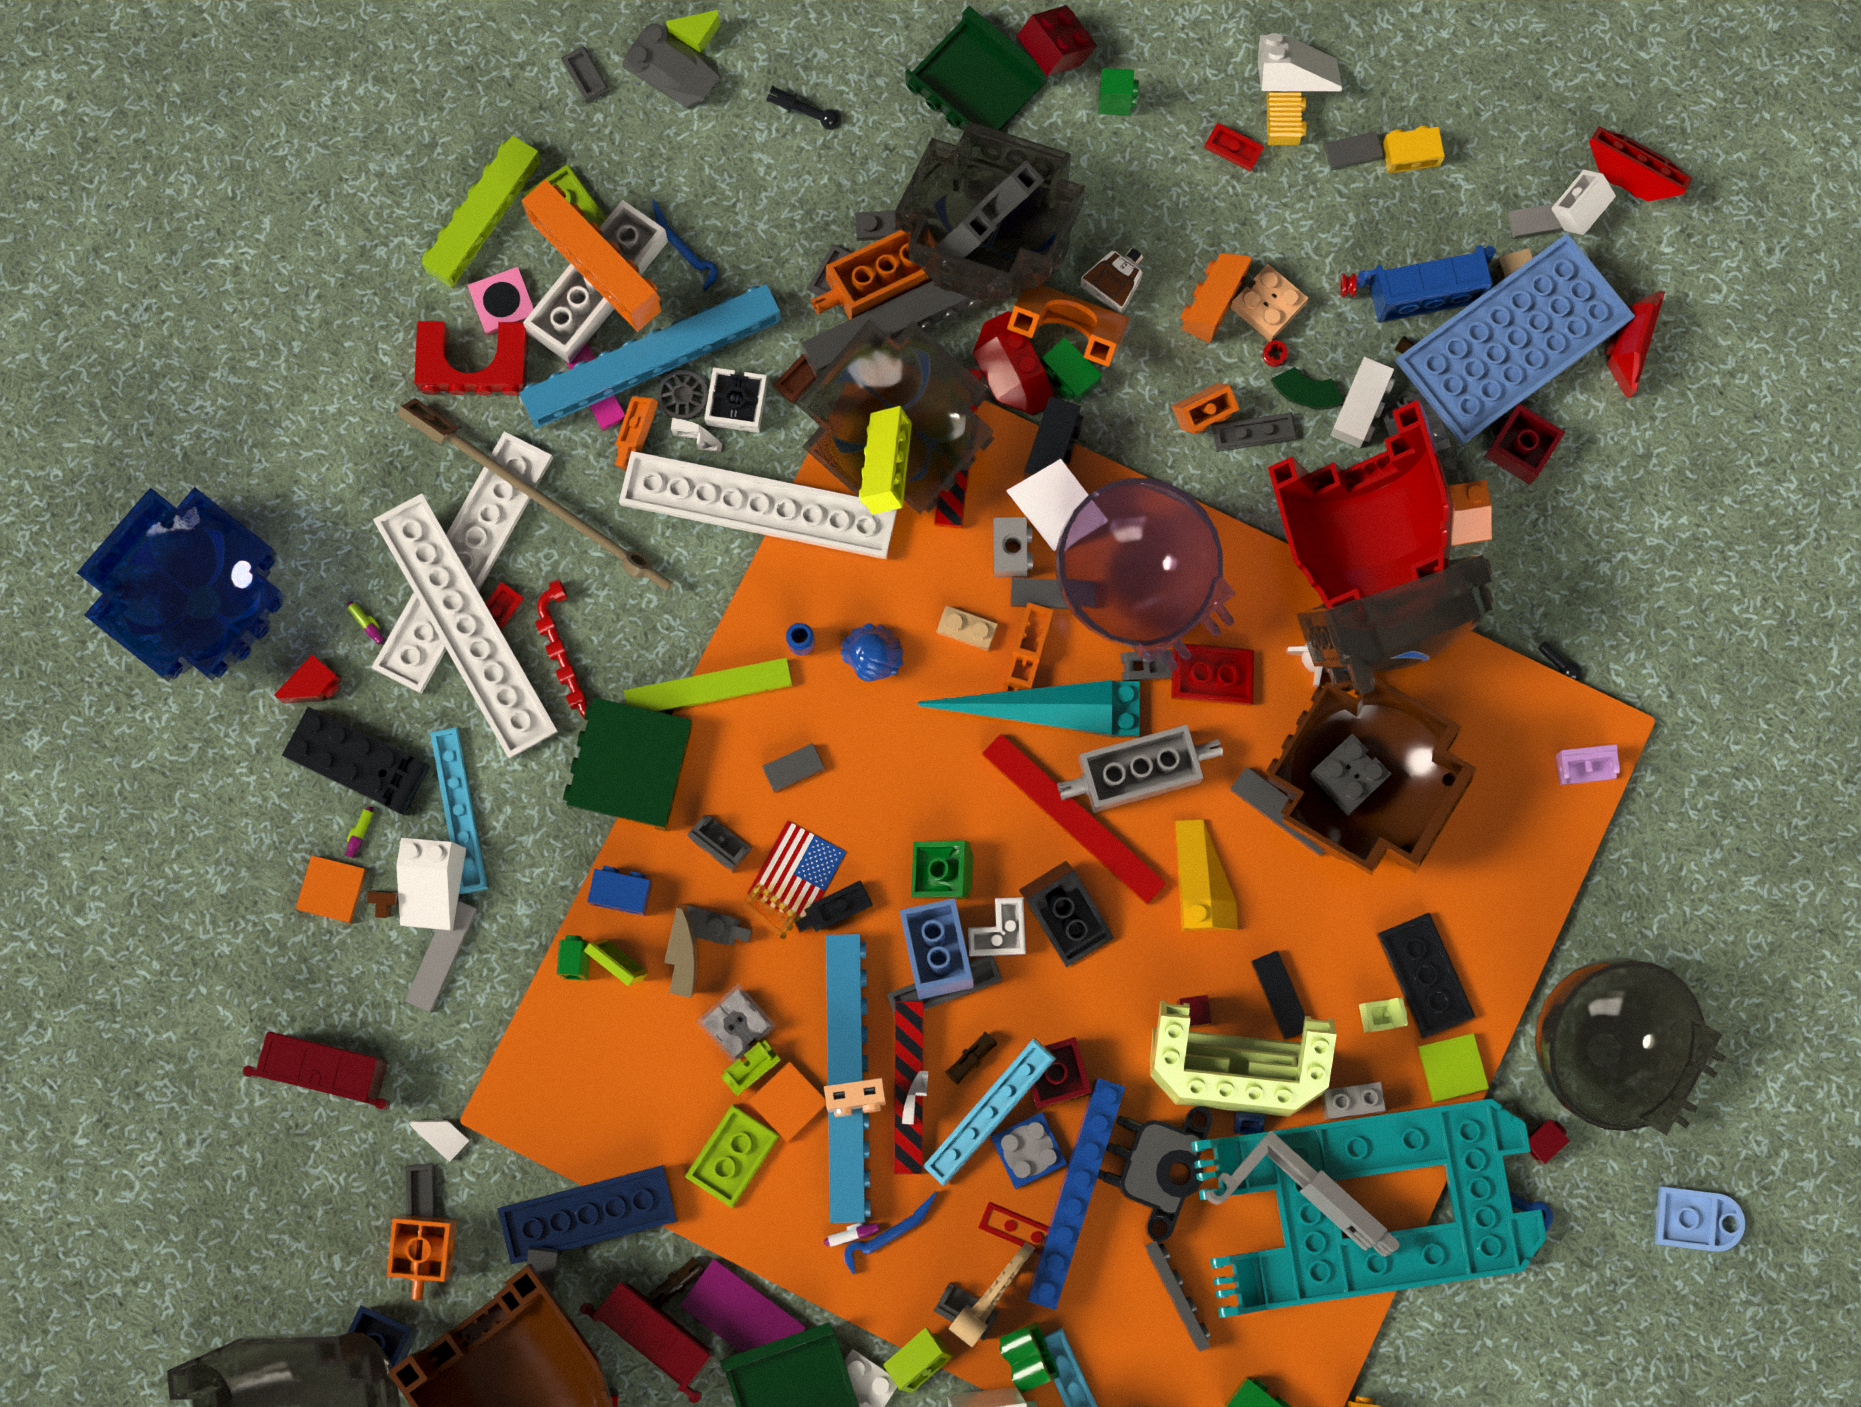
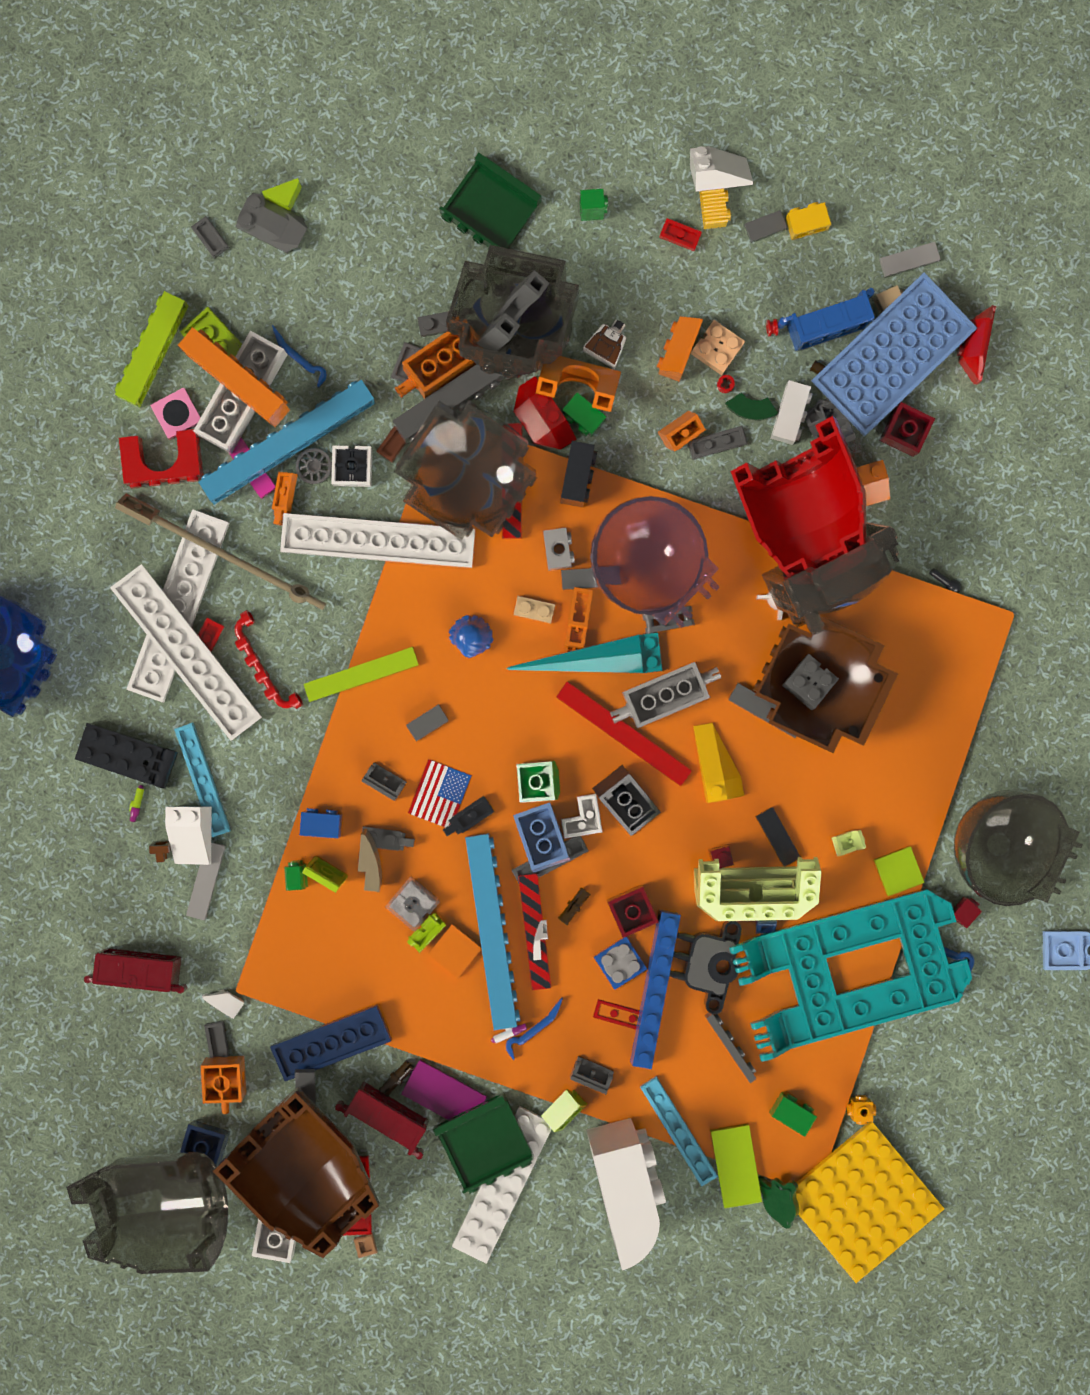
camera: 10 degrees left, 10 degrees up
(309, 683) = (86, 704): red slope -> none
(331, 889) = (123, 845): orange tile -> none
(367, 623) = (118, 657): piece -> none
(628, 763) = (313, 735): dark green panel -> none
(688, 429) = (334, 497): white slope -> none
(732, 1156) = (422, 991): lime tile -> none
(786, 924) = (438, 833): clear yellow tile -> none
(798, 631) = (420, 627): blue brick -> none
(829, 118) = (389, 248): black pin -> none
(854, 1095) = (496, 948): light nougat piece -> none
(885, 460) = (463, 502): neon yellow brick -> none
(971, 1323) = (596, 1085): tan piece -> none
(989, 1112) = (591, 943): medium azure tile -> none
(1028, 1357) = (637, 1100): green brick -> none
(1049, 499) = (581, 515): white sticker -> none
(1056, 40) = (544, 171): dark red brick -> none
(1214, 675) = (709, 622): red tile -> none
(1318, 1190) = (816, 966): light grey hinge -> none
(1352, 1101) = (835, 903): light grey brick -> none
(1425, 975) = (874, 810): black tile -> none
(1583, 202) = (933, 246): white brick -> none
(1587, 764) = (971, 652): lavender hinge -> none
(1637, 167) = (968, 214): red wedge -> none

